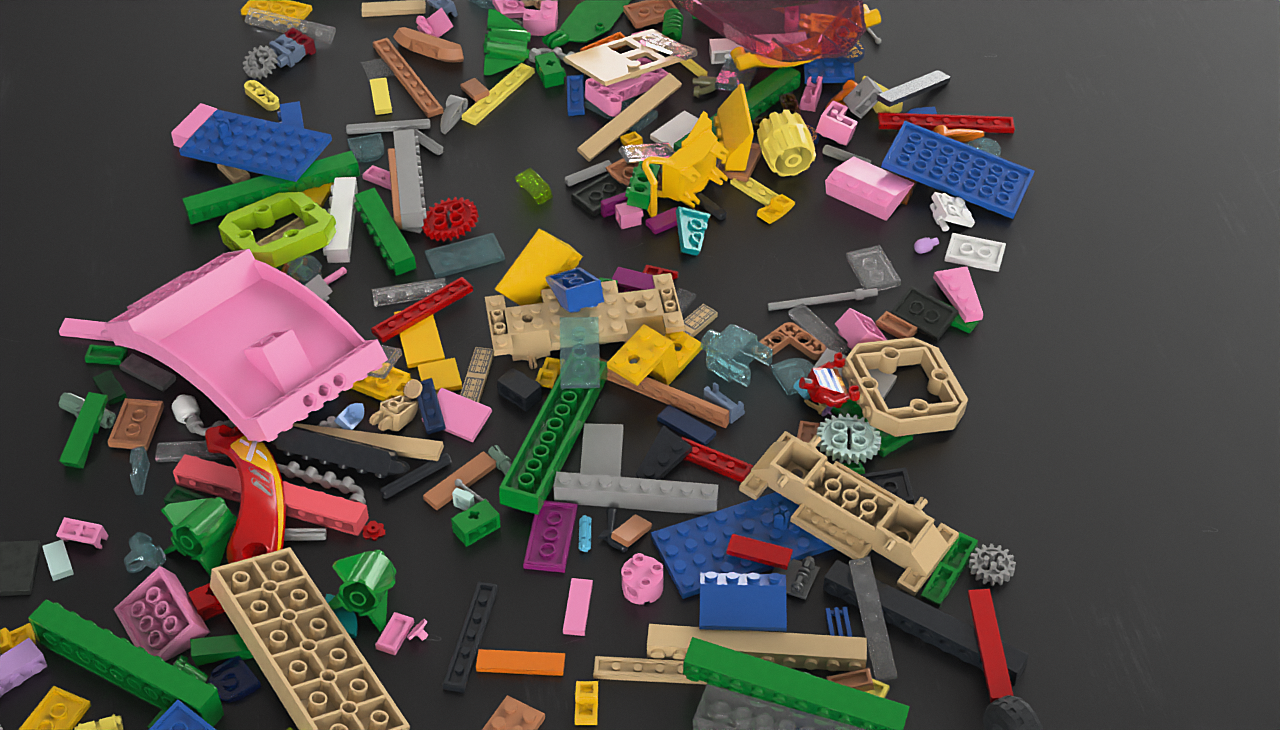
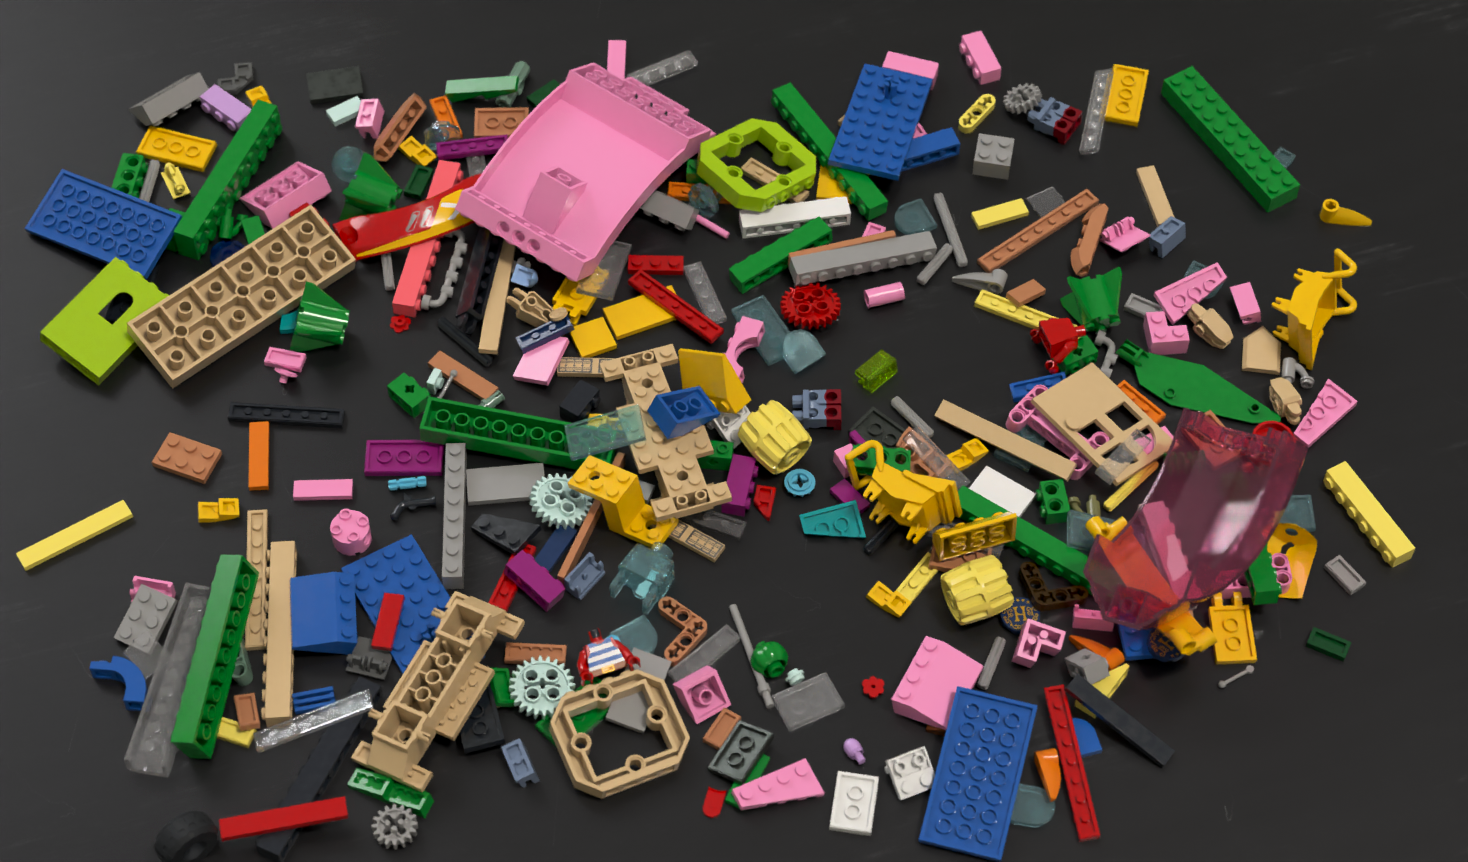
camera: 80 degrees right, 10 degrees up
(103, 473) = (443, 111): none -> orange tile
(103, 506) = (398, 128): none -> nougat brick
(114, 292) = (665, 68): none -> clear tile
(149, 497) = (416, 152): none -> yellow slope
(161, 448) = (470, 147): none -> magenta tile
(199, 82) = (980, 57): none -> bright pink brick
(318, 88) = (993, 156): none -> light grey brick
(365, 318) = (656, 264): none -> red plate
(450, 172) = (884, 294): none -> bright pink pin
(473, 260) = (747, 335): none -> bright pink arch
(499, 230) = (801, 350): none -> clear light blue tile
(535, 67) = (1058, 338): none -> red torso
(567, 226) = (819, 407): none -> sand blue hips
(604, 245) = (774, 437): none -> light yellow wheel
(631, 530) = (411, 518): nougat tile -> none
(635, 410) = (558, 502): none -> light aqua gear
(650, 249) = (805, 477): none -> medium azure gear
(695, 99) = (1056, 501): none -> green brick
(726, 435) = (534, 580): none -> magenta brick
(830, 284) = (770, 657): none -> green plant
(850, 271) = (795, 676): none -> light aqua plate
(862, 227) = (873, 686): none -> red plant
(927, 461) = (520, 762): none -> sand blue hinge
(969, 340) = (713, 802): none -> red piece

